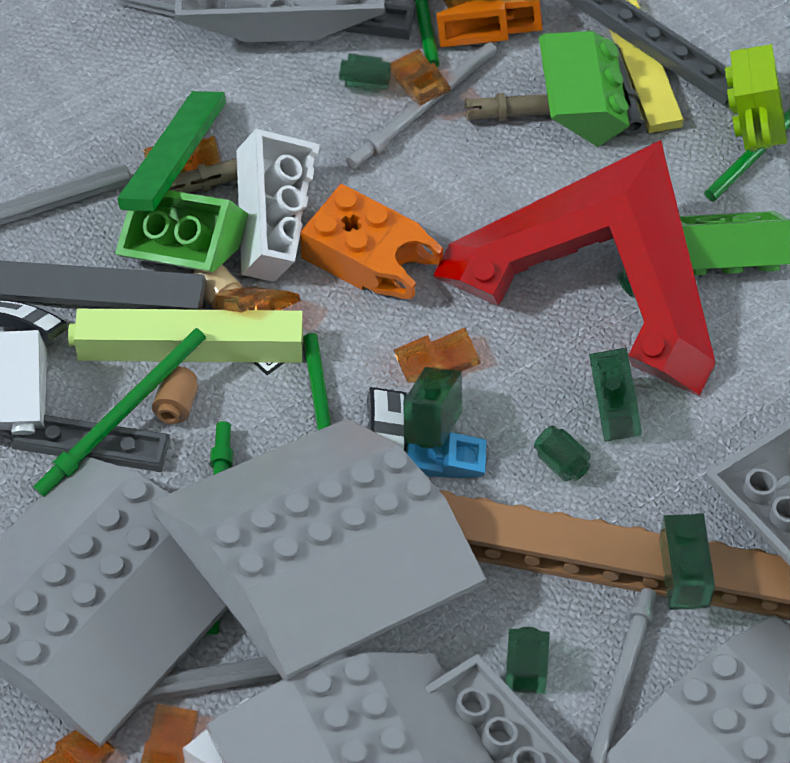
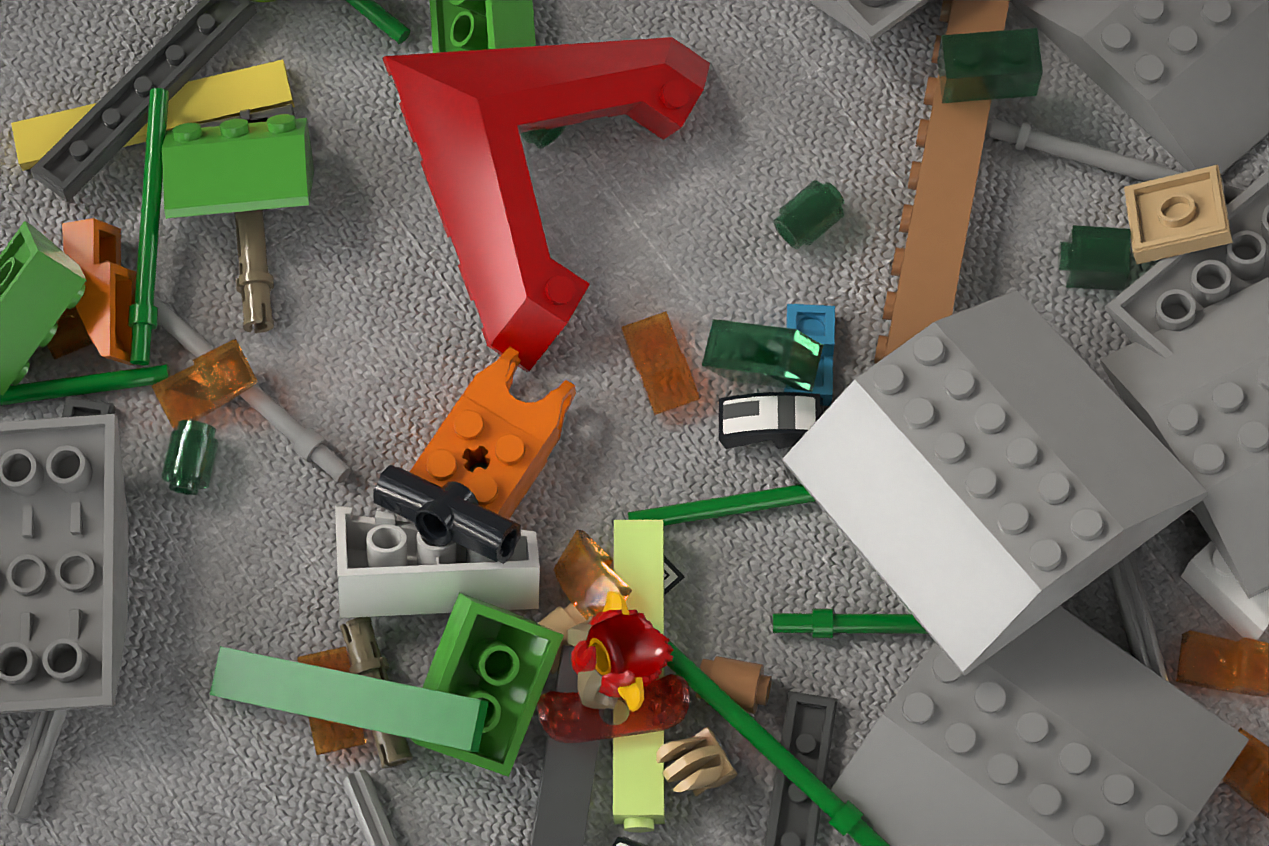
camera: 85 degrees left, 15 degrees up
(114, 367) = (697, 761): none -> tan arm
(149, 279) = (572, 722): none -> clear red piece
(188, 294) = (617, 655): none -> red hair
(303, 198) = (447, 514): none -> black piece
(473, 41) = (143, 313): none -> green bar
(563, 716) = (1177, 214): none -> tan tile
(615, 394) = (731, 147): clear green brick -> none

